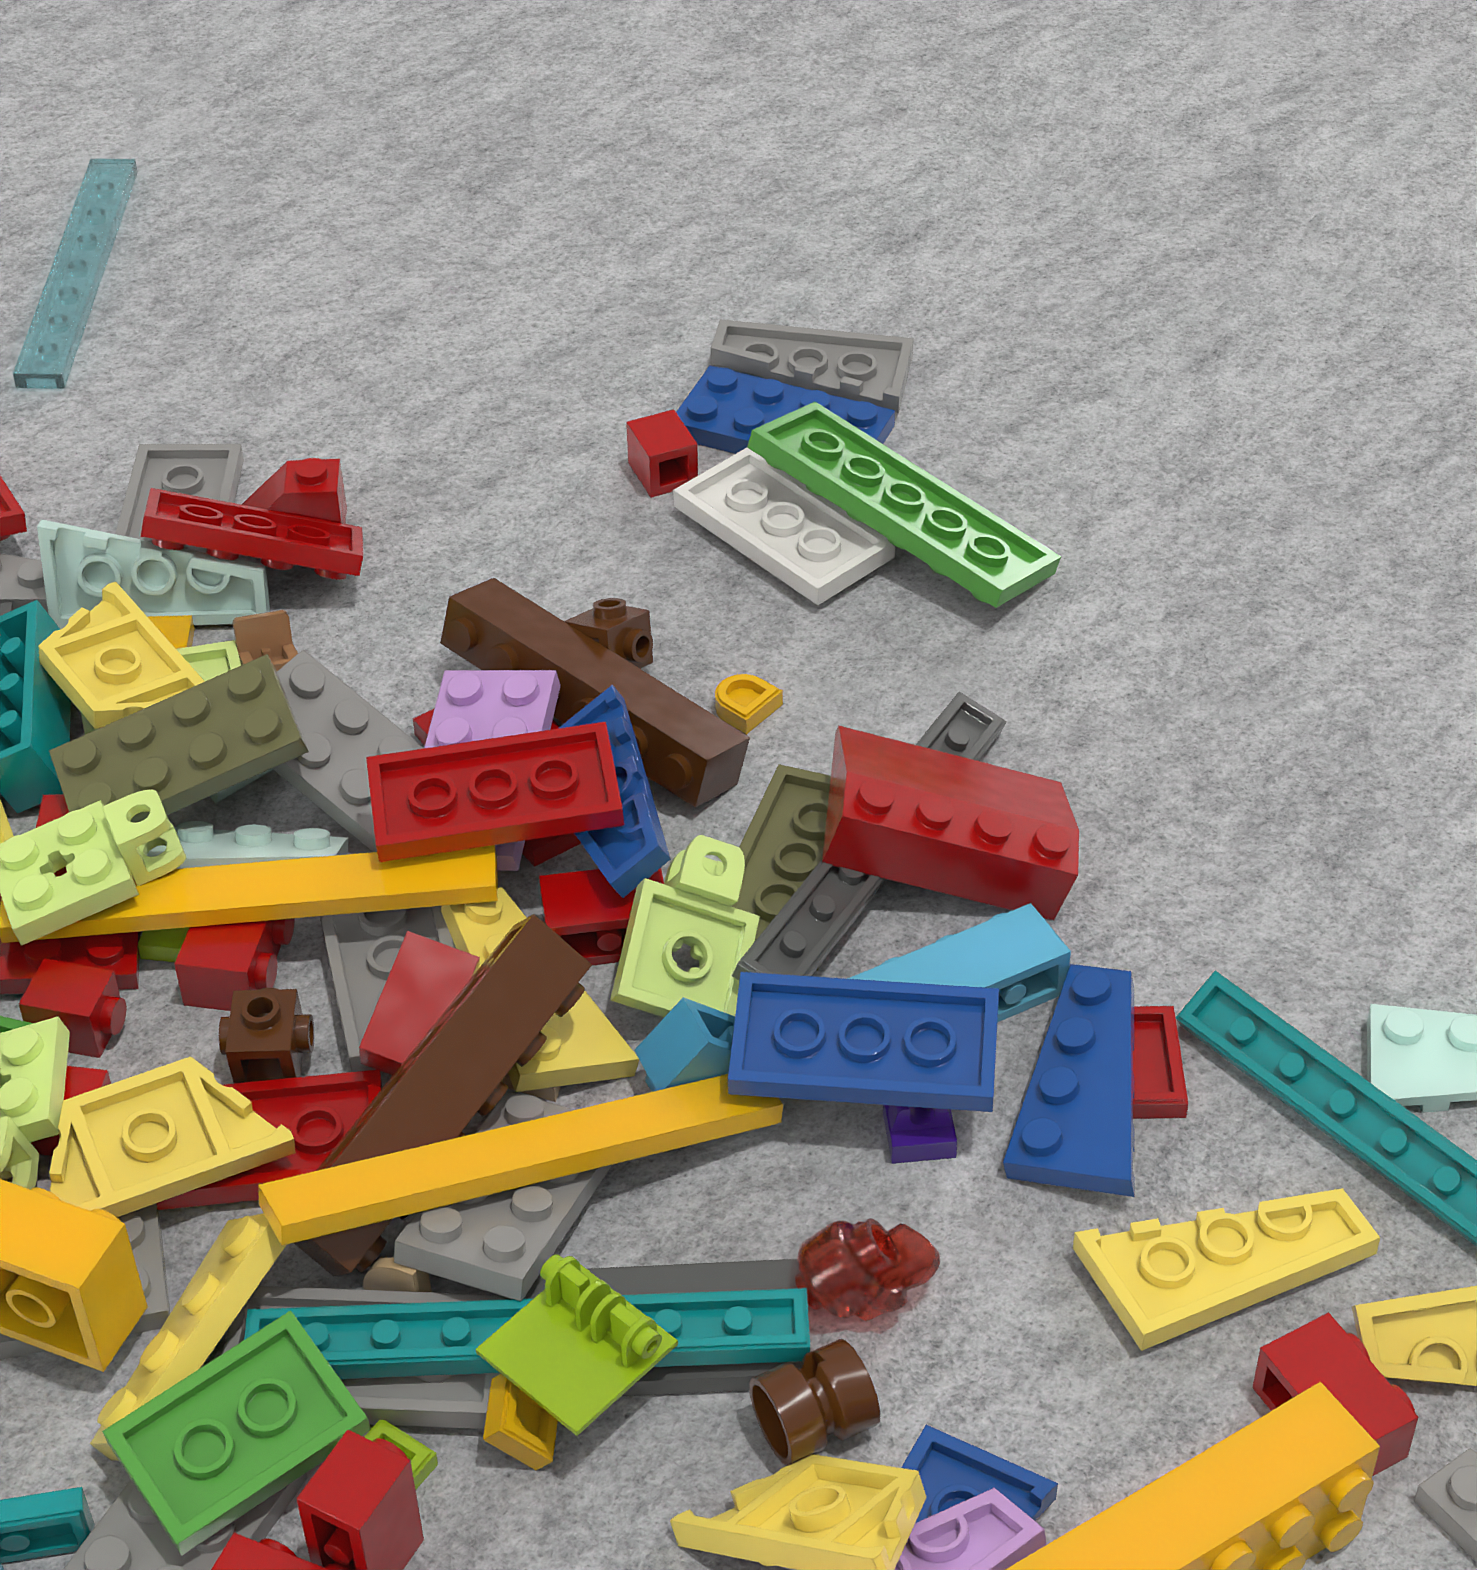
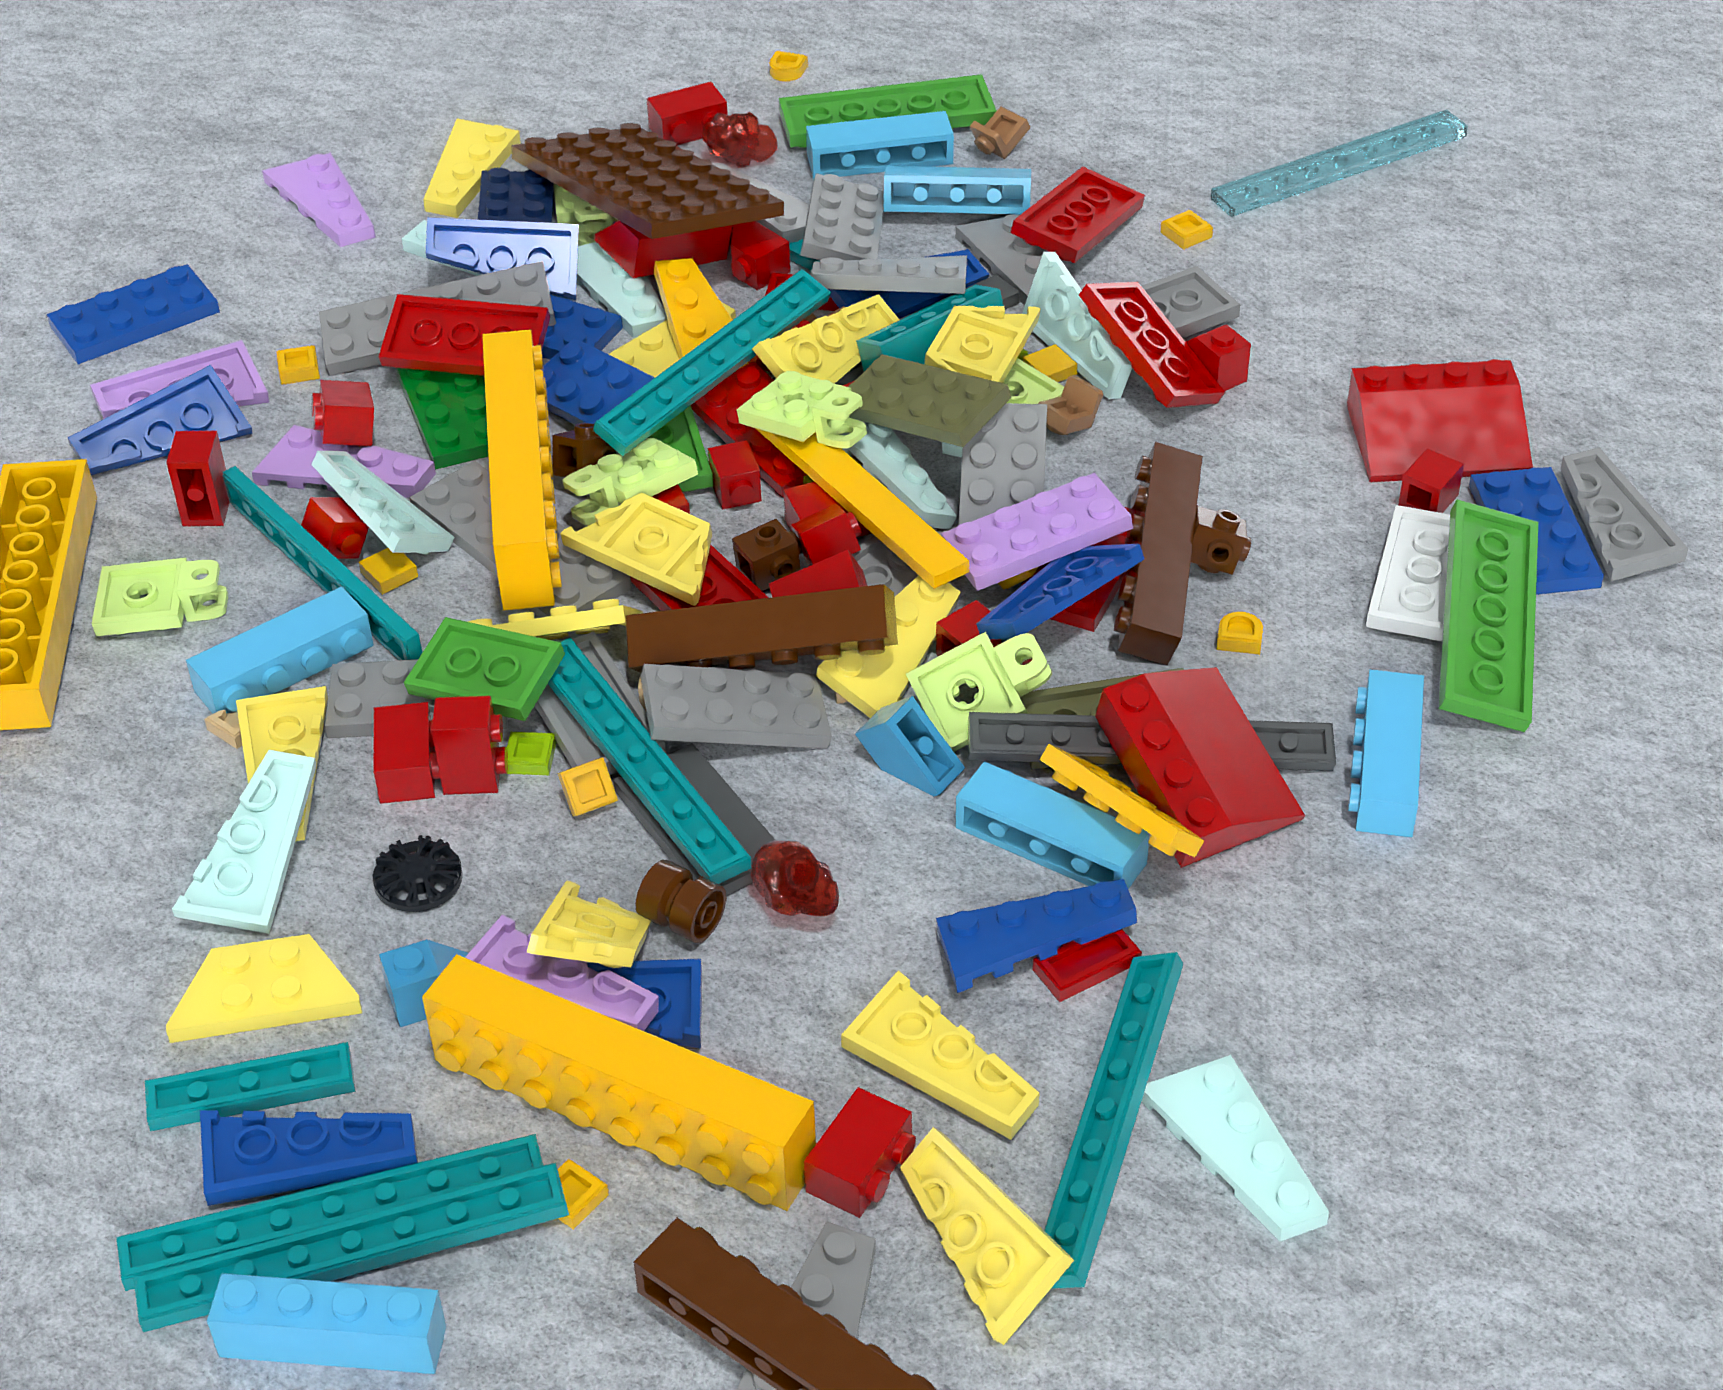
camera: 60 degrees right, 0 degrees up
(51, 427) = (1186, 229): none -> yellow tile
(297, 955) = (827, 534): none -> red brick
(493, 791) = (997, 535): red plate -> none
(509, 1158) = (754, 691): yellow tile -> none
(565, 401) = (1450, 408): none -> slope
(576, 1345) = (631, 770): lime hinge -> none
(864, 1041) = (950, 795): blue plate -> none
(919, 1133) = (939, 868): dark purple tile -> none
(1019, 894) = (1133, 810): none -> yellow wing
(1029, 673) = (1389, 753): none -> medium azure brick

